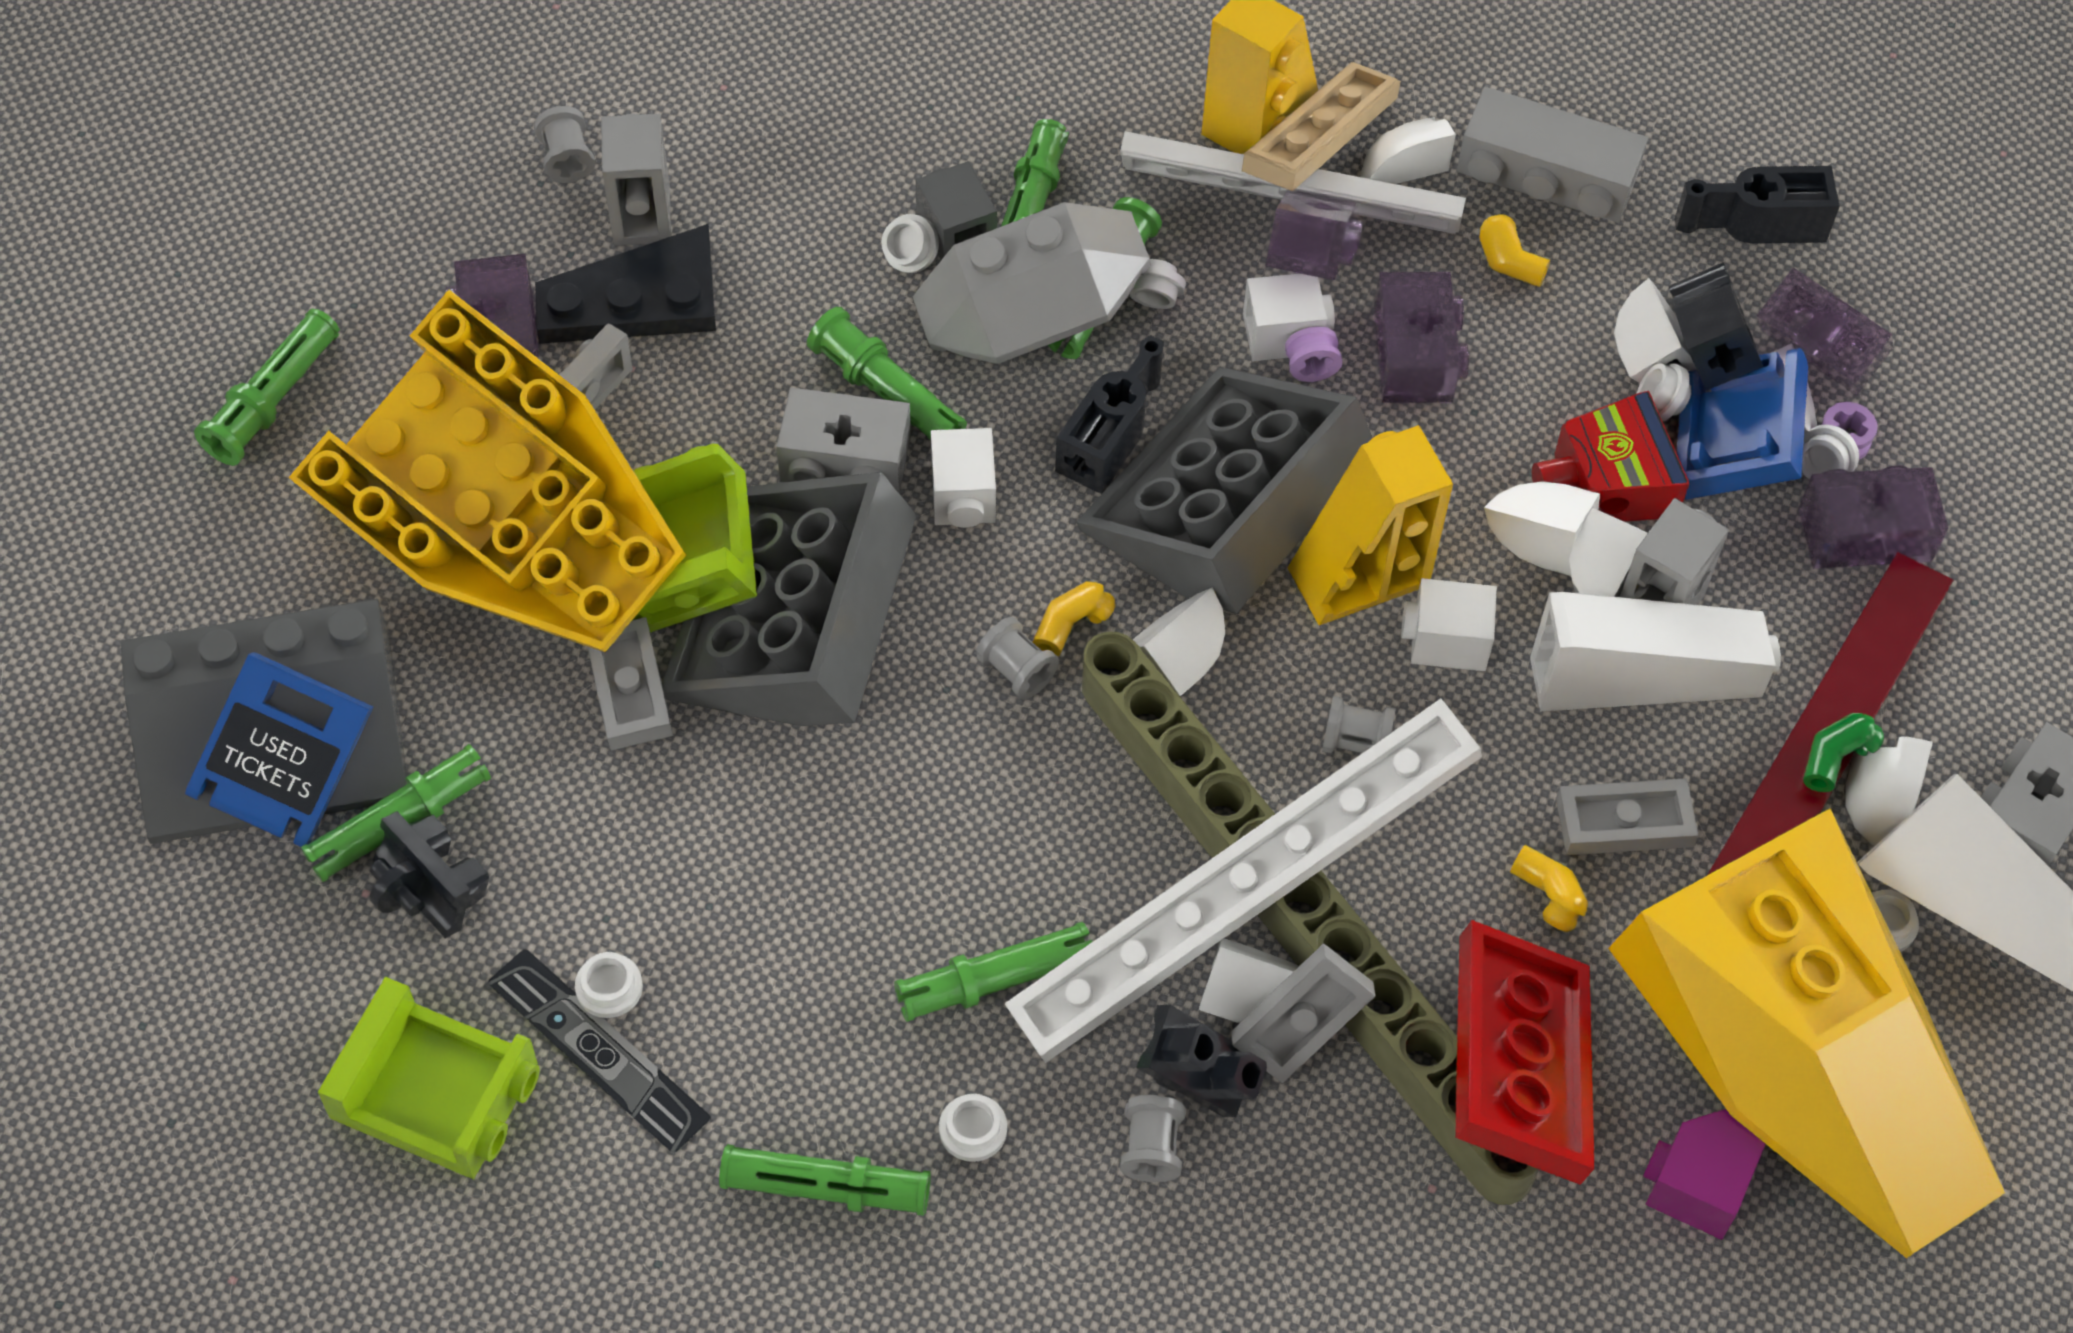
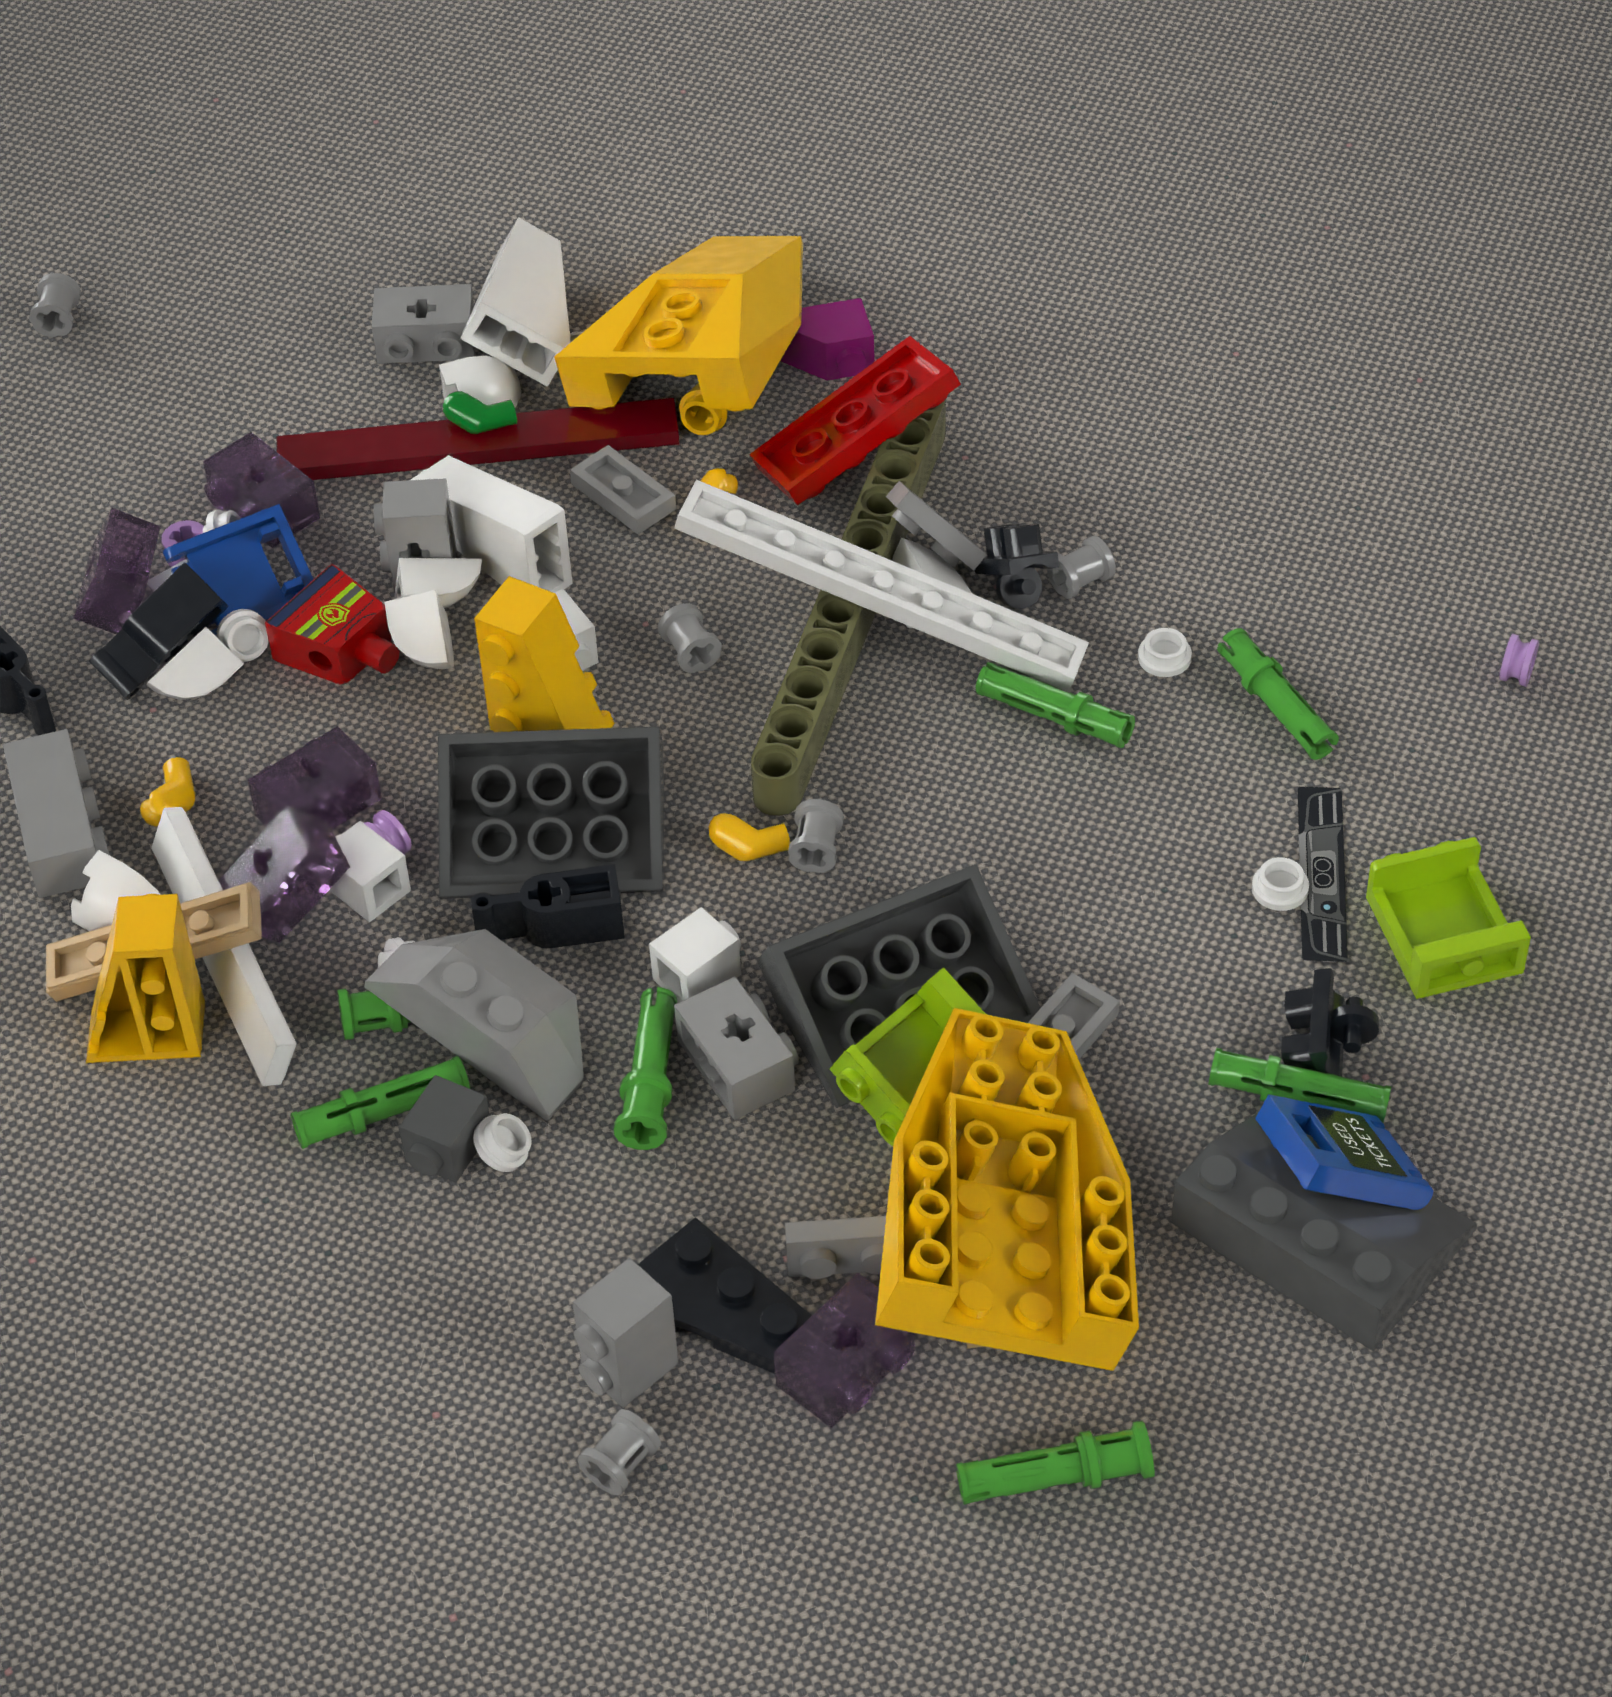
camera: 125 degrees left, 10 degrees down
(1185, 640) = (713, 767): white brick -> none

